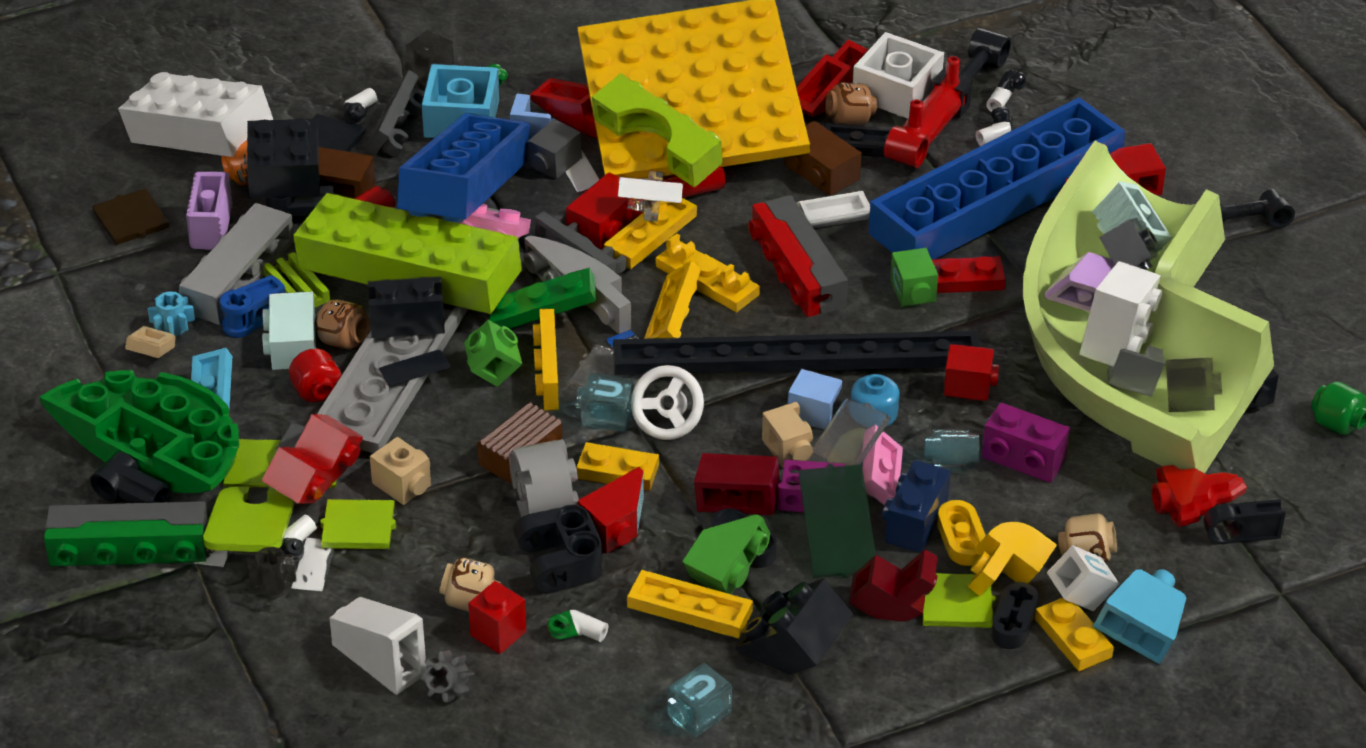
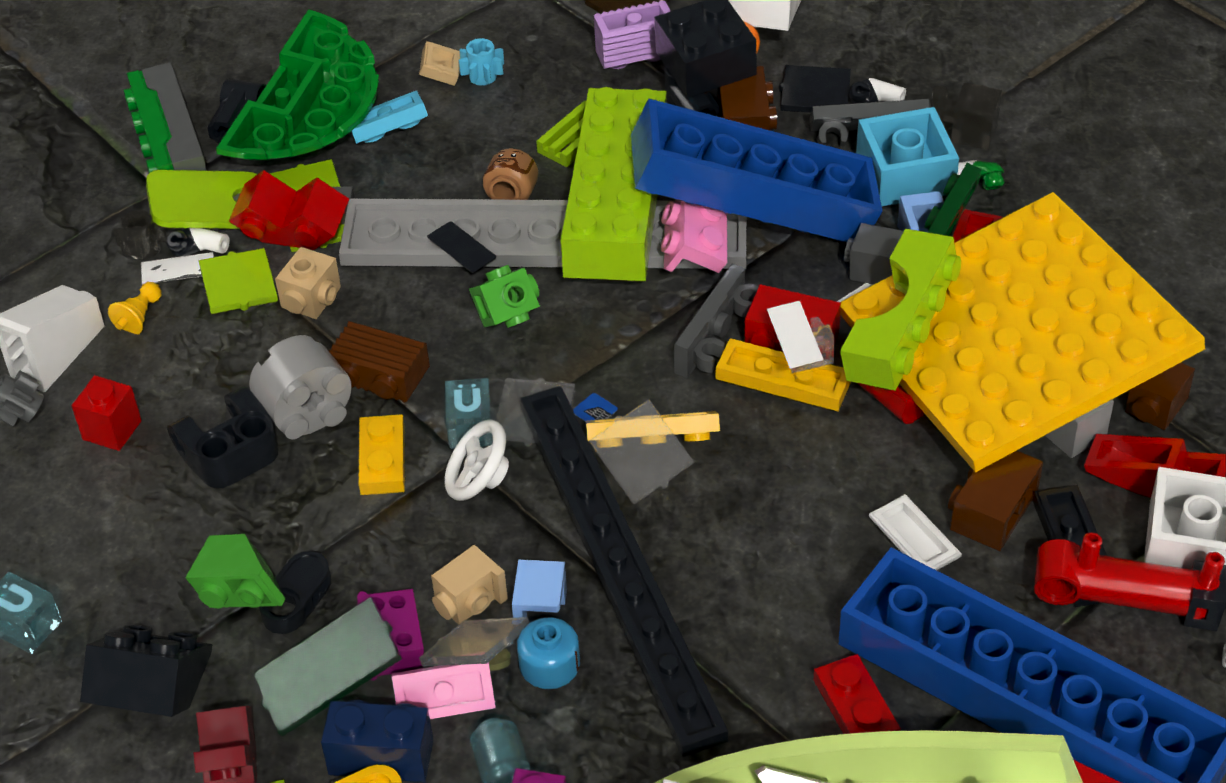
camera: 75 degrees right, 5 degrees up
(237, 259) = (563, 77): light grey brick -> none
(248, 306) = (515, 109): blue piece -> none
(289, 327) = (476, 142): light aqua brick -> none
(314, 374) = (431, 179): red head -> none
(370, 590) = (131, 313): none -> yellow piece
(406, 307) = (520, 197): black brick -> none
(465, 581) = (152, 378): tan head -> none
(546, 359) = (521, 346): yellow plate -> none
(551, 95) = (958, 193): none -> dark green plate
(553, 259) = (652, 352): light grey slope -> none
(557, 294) = (606, 312): green plate -> none
(575, 623) = (124, 480): arm -> none
(617, 509) = (296, 467): red slope -> none
(690, 604) = (173, 550): yellow plate -> none
(700, 312) = (641, 452): none -> clear piece
(715, 278) = (735, 448): yellow plate -> none
(737, 483) = (360, 553): dark red brick -> none
(798, 256) = (796, 518): piece -> none
(850, 104) = (1118, 496): medium nougat head -> none
(914, 277) = (807, 641): bright green brick -> none
(970, 372) = (638, 738): red brick -> none
(1000, 125) = (1177, 673): white arm -> none

